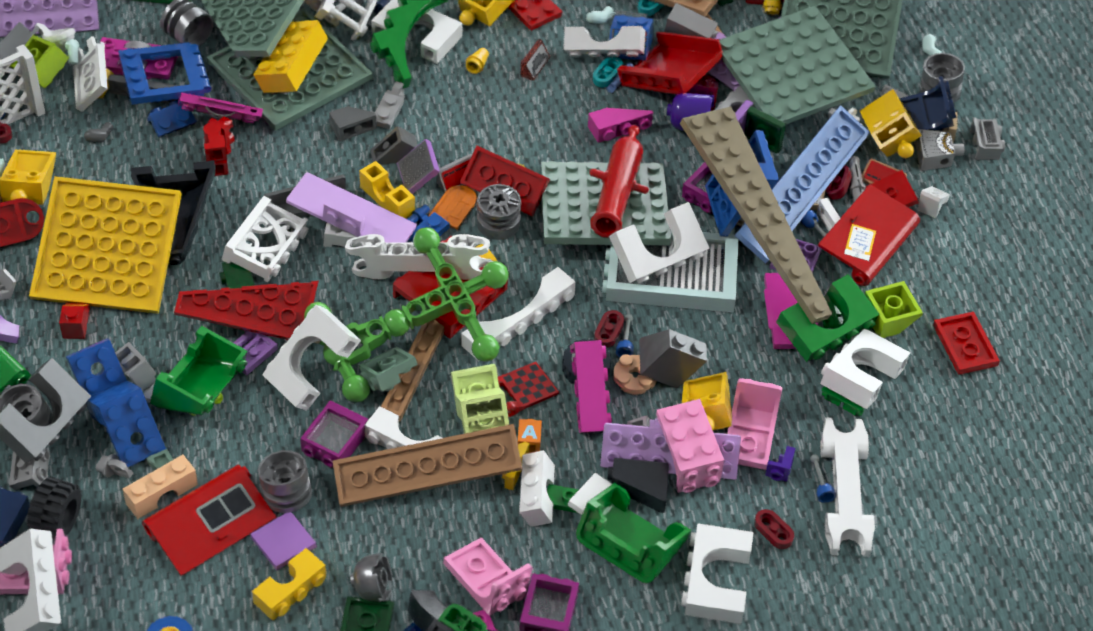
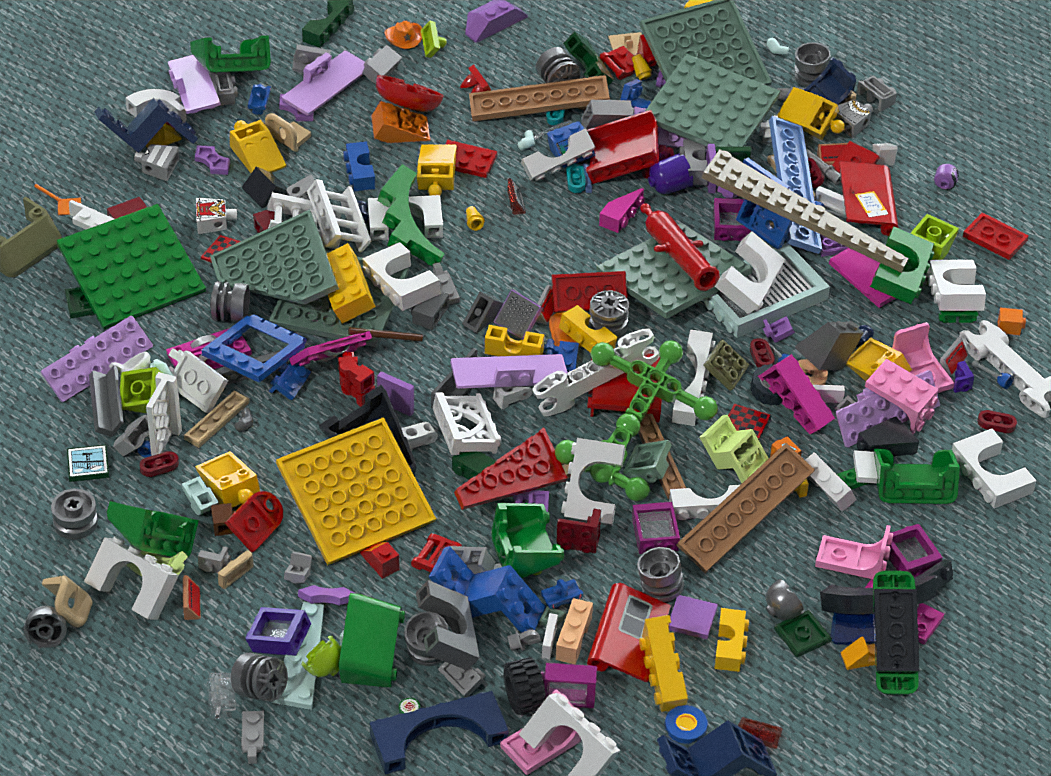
camera: 35 degrees left, 5 degrees down
(79, 119) = (216, 419): none -> tan tile
(96, 534) = (572, 682): none -> magenta window
(134, 474) = (549, 636): none -> white tile
(138, 339) = (433, 540): none -> red plate
(186, 444) = (561, 593): none -> blue hips
(197, 567) = (663, 663): none -> yellow wedge
(219, 226) = (419, 434): none -> white leg
(235, 178) = (399, 392): none -> medium lavender tile
(262, 406) = (580, 535): none -> dark red bracket
(287, 121) = (387, 334): none -> reddish brown bar
(340, 59) = (402, 292): none -> white arch
(463, 203) = (575, 324): none -> yellow arch
(560, 319) = (726, 365): none -> olive tile
(627, 400) = (831, 393): none -> white tile
(647, 314) = (778, 330): none -> medium lavender bracket
(725, 365) = (868, 333): none -> dark blue bush
(733, 19) = (632, 91): none -> blue bracket
(800, 437) = (955, 354): none -> slope
(891, 436) = (1011, 321): none -> orange brick
(974, 256) = (946, 176): none -> medium lavender head

